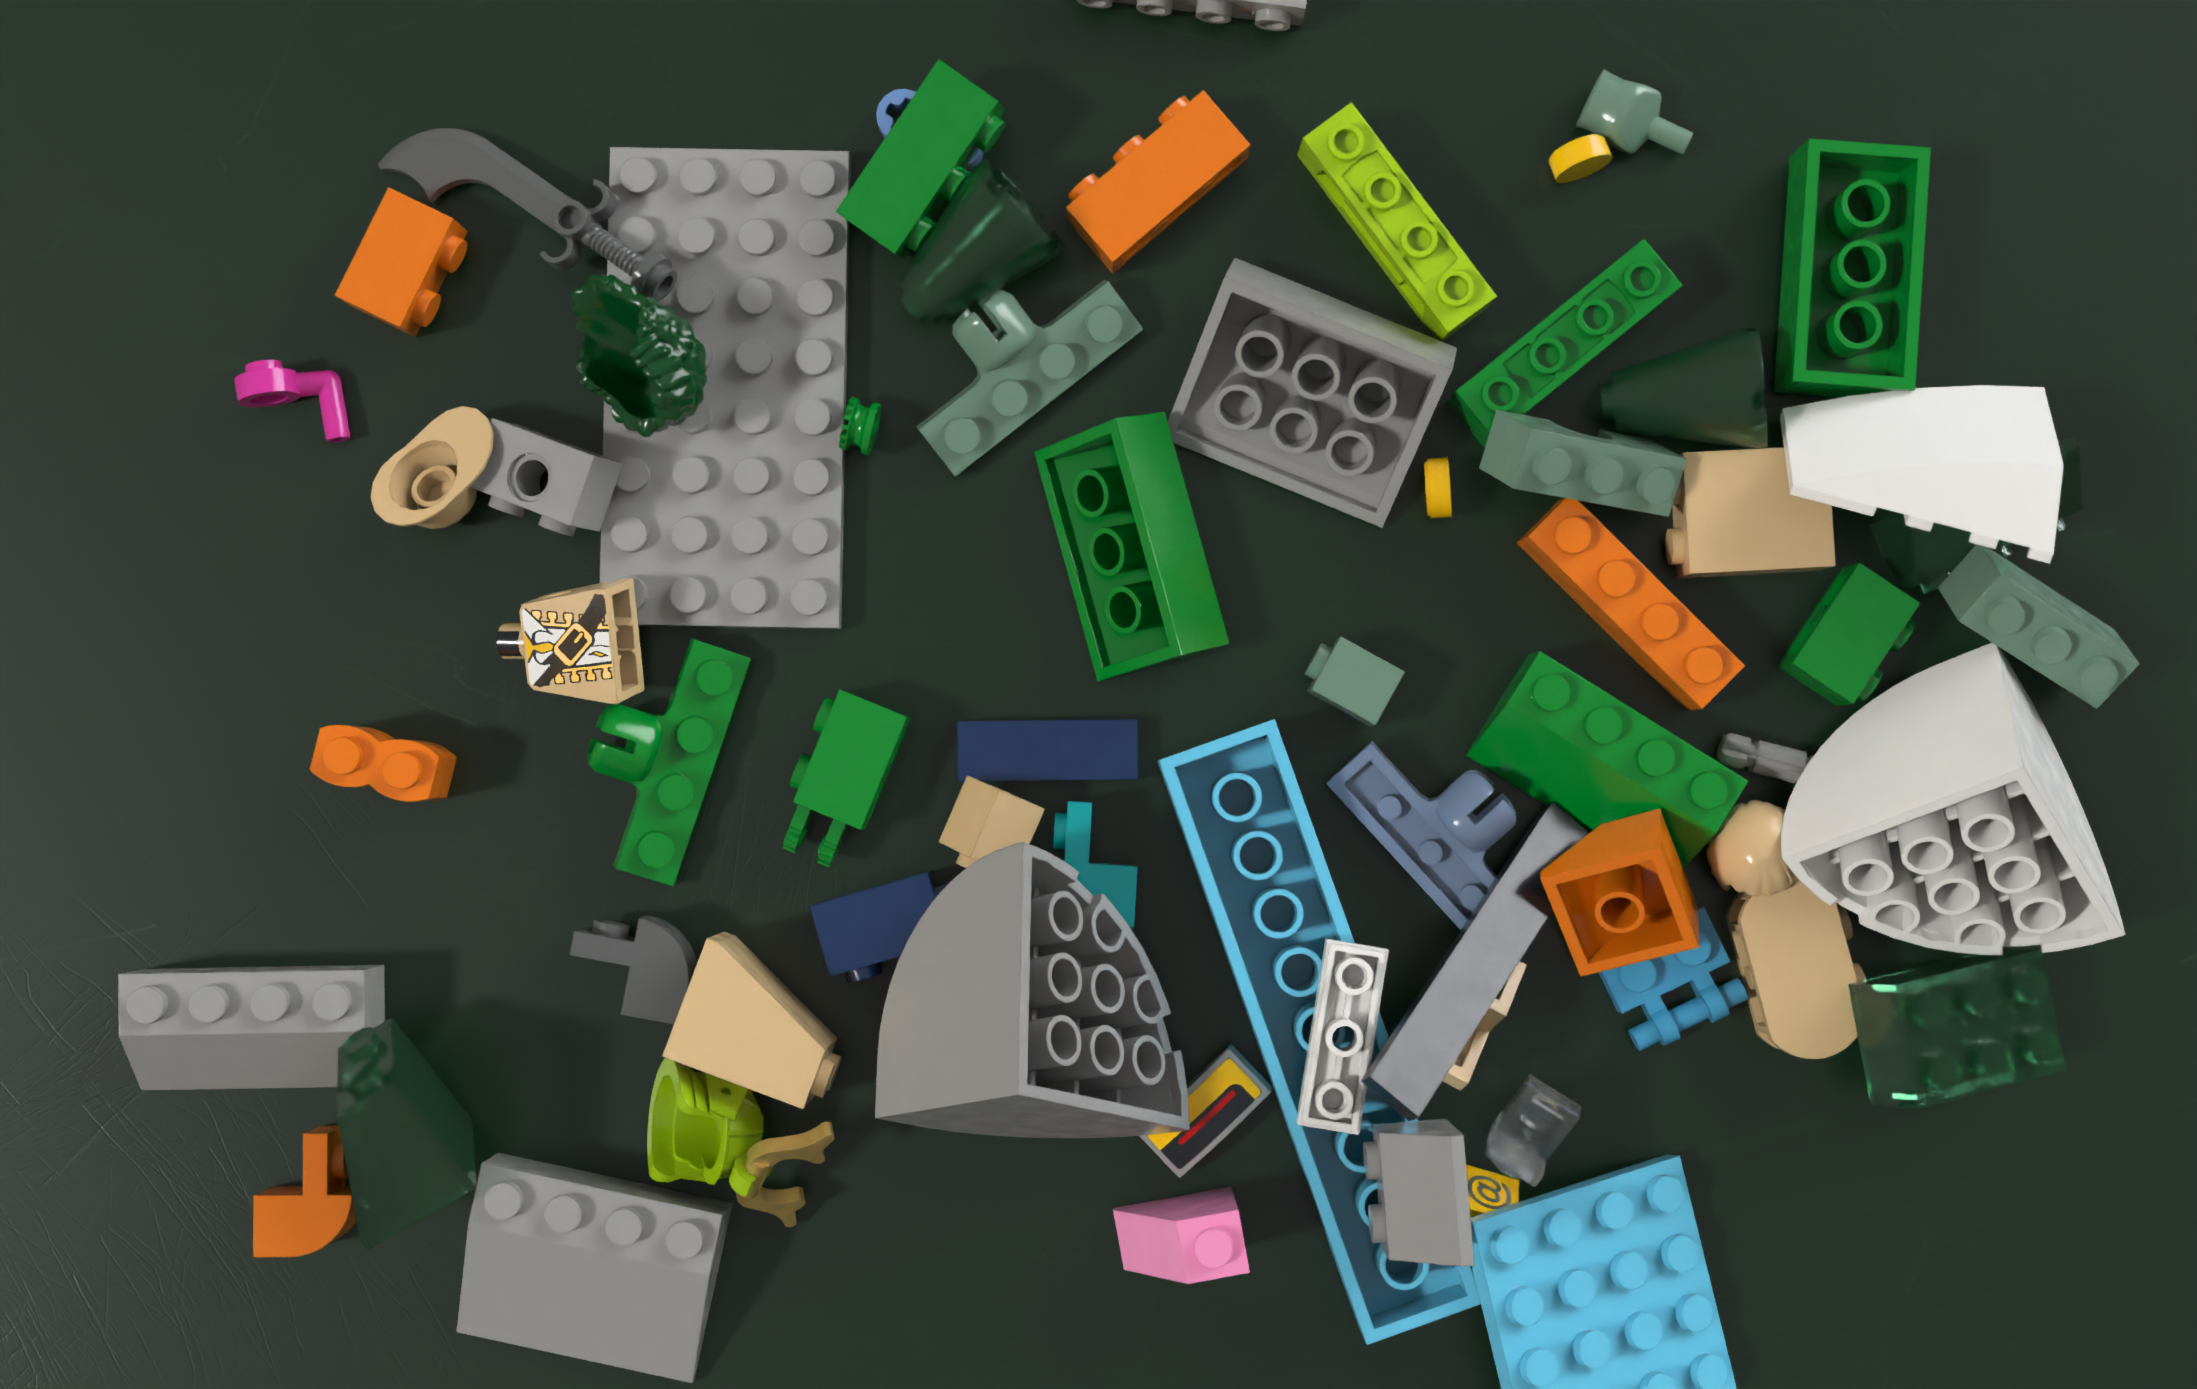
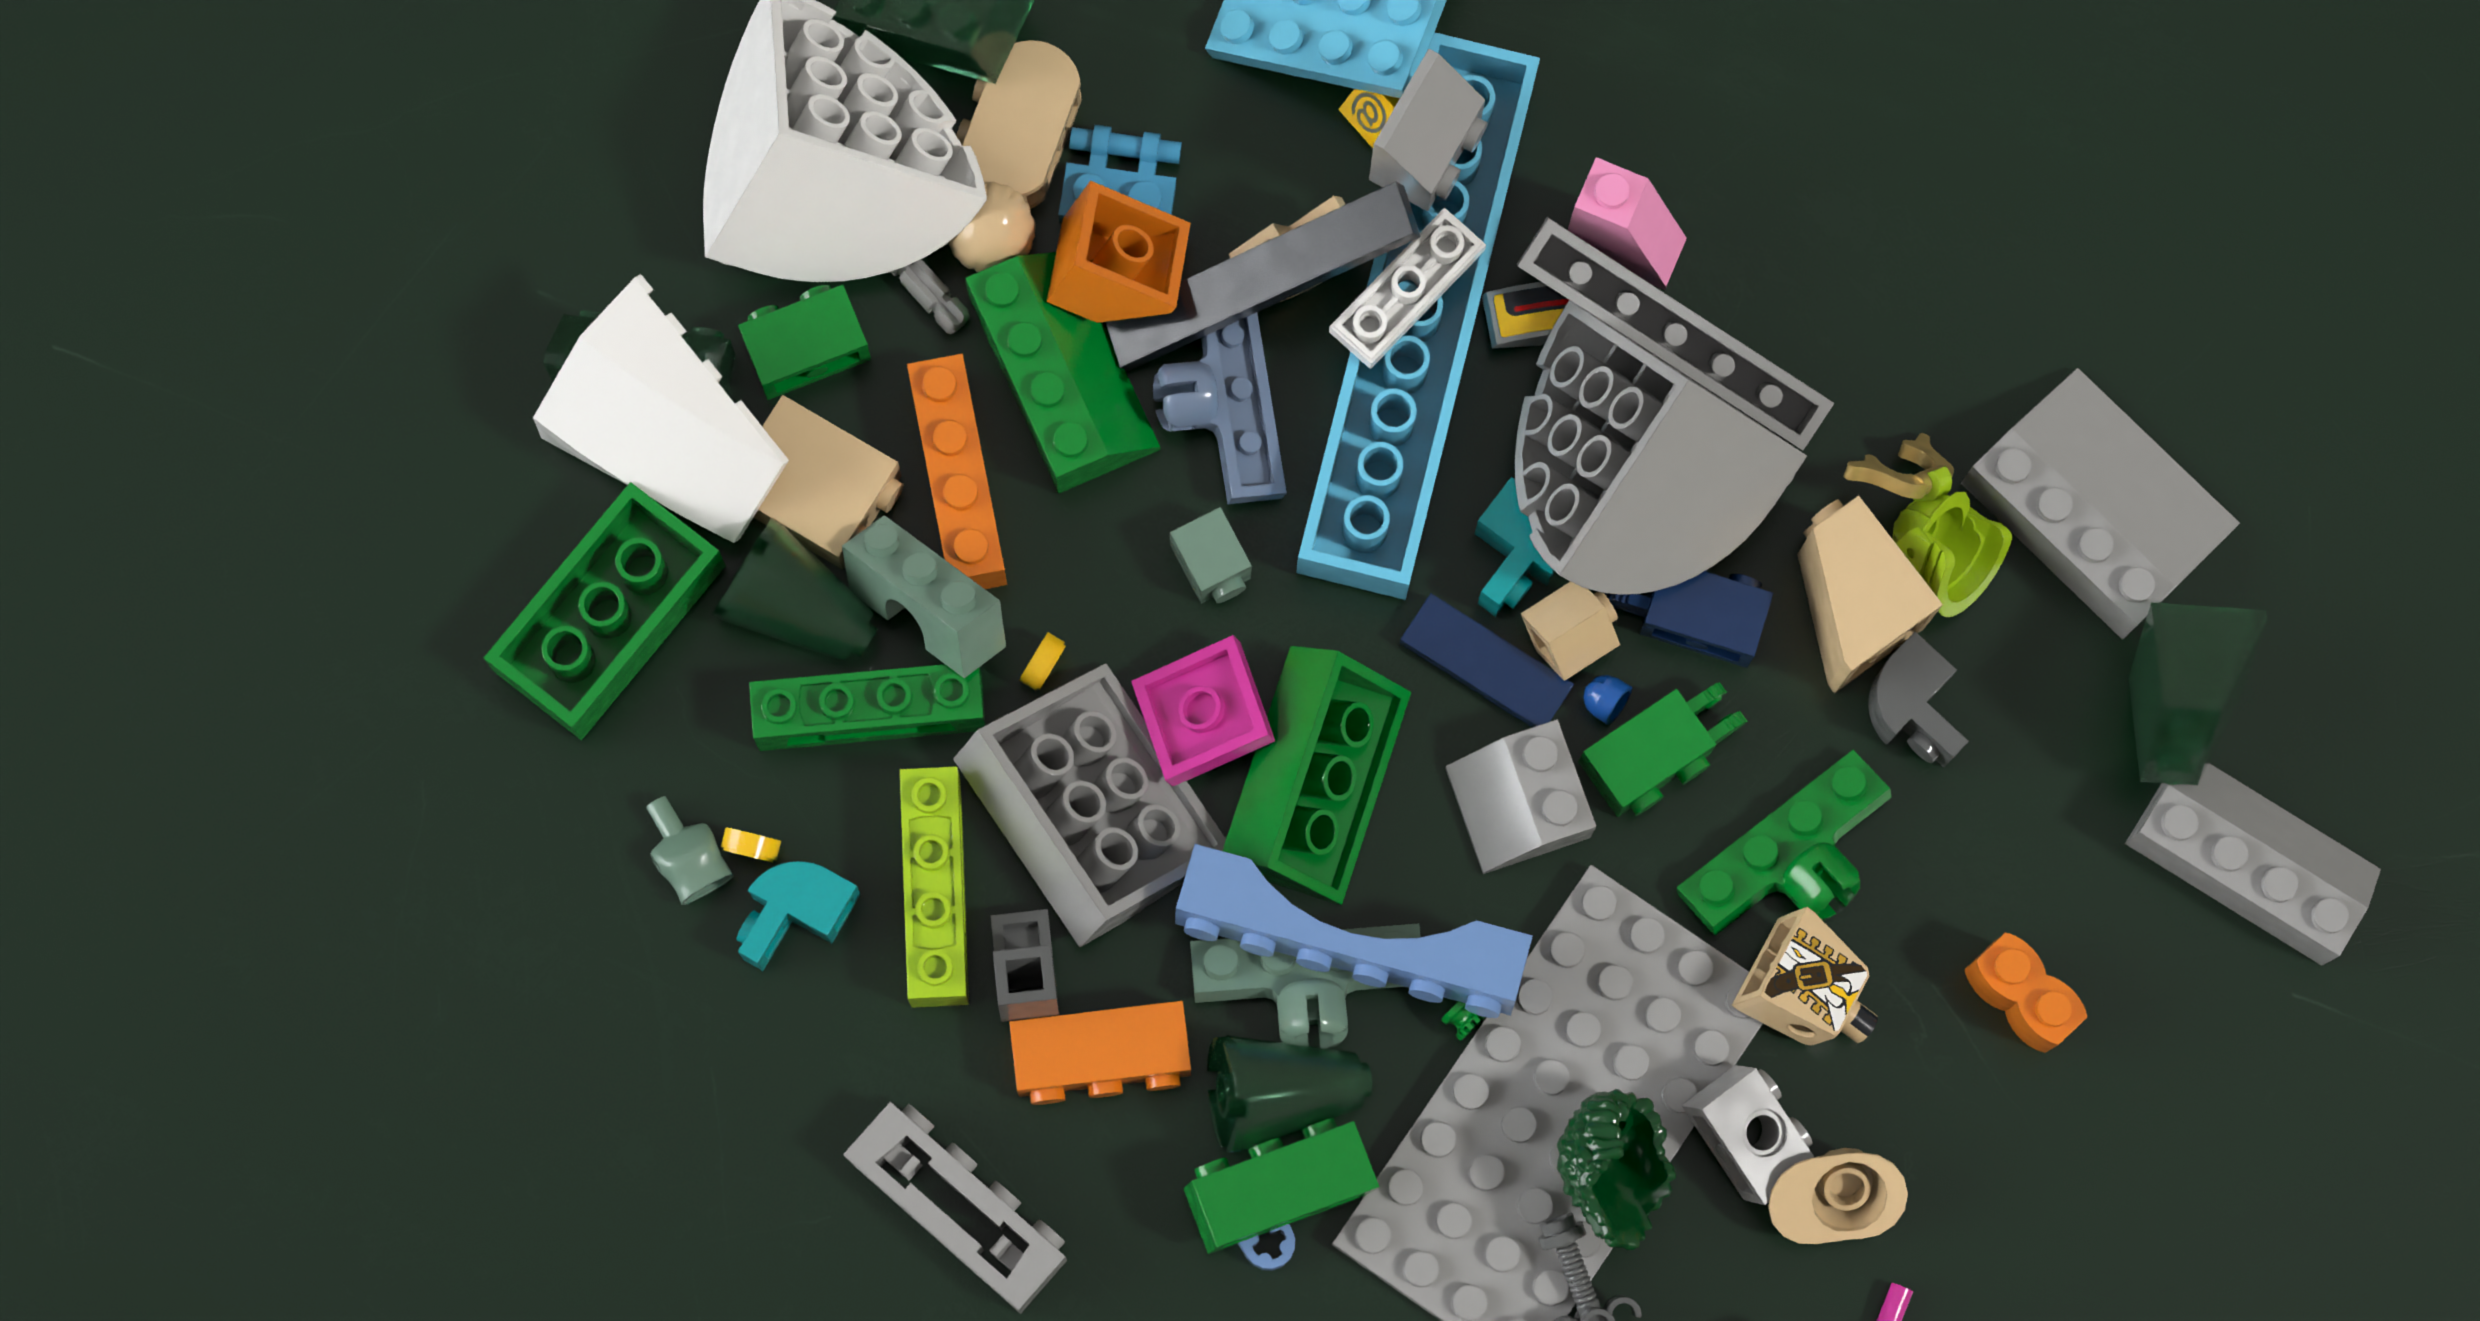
camera: 150 degrees left, 10 degrees down
(310, 1216) = (2298, 679): orange brick -> none
(922, 788) = (1606, 697): none -> blue hinge
(937, 644) = (1521, 797): none -> light grey slope
(1073, 1160) = (1675, 333): none -> light grey brick
(1125, 376) = (1468, 964): none -> medium blue arch
(1264, 198) = (1024, 965): none -> dark grey brick
(1267, 533) = (1203, 711): none -> dark pink plate
(1504, 142) = (795, 894): none -> teal brick
(1530, 1130) = (1306, 137): clear bracket -> none
(2037, 625) = (663, 244): sand green brick -> none

